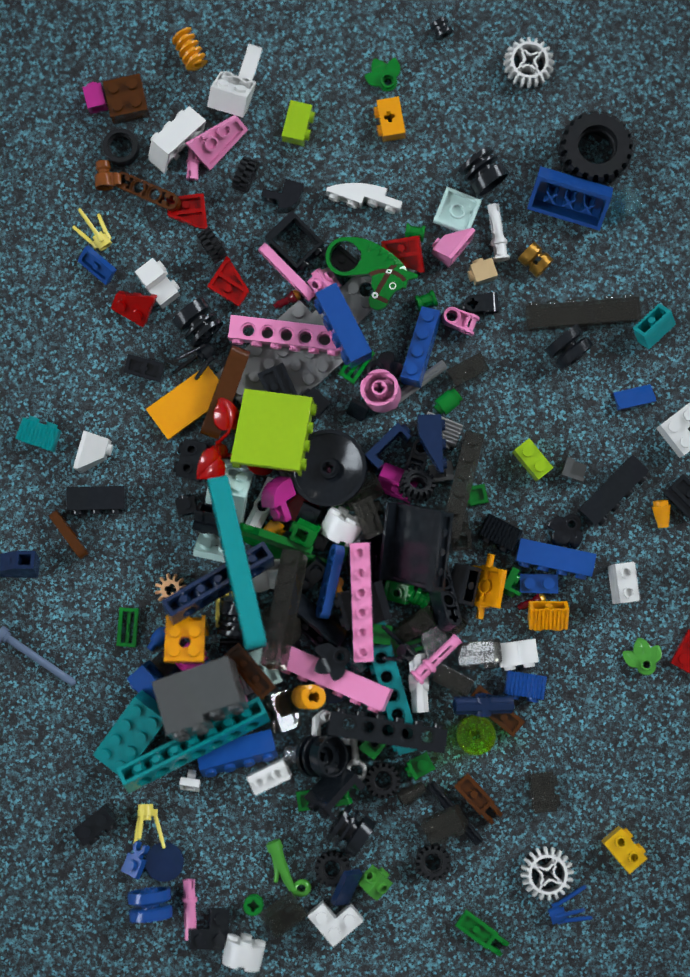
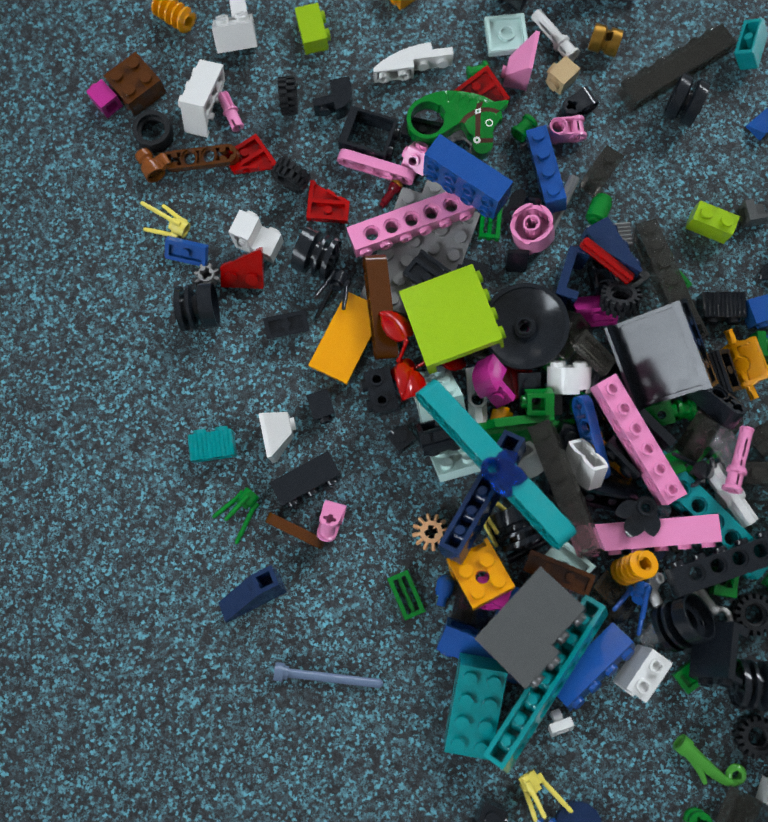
camera: 25 degrees left, 5 degrees down
(42, 489) = (245, 499): none -> green plant
(77, 316) = (193, 307): none -> black wheel
(99, 540) = (330, 520): none -> bright pink piece
(104, 290) = (205, 271): none -> light grey gear
(138, 448) = (321, 406): none -> black brick
(217, 141) = (243, 80): bright pink wing -> none
(238, 575) = (506, 473): none -> clear blue plate
(303, 721) = (640, 595): none -> blue plant
(313, 599) = (586, 464): none -> white brick
(420, 449) = (606, 260): none -> red axle

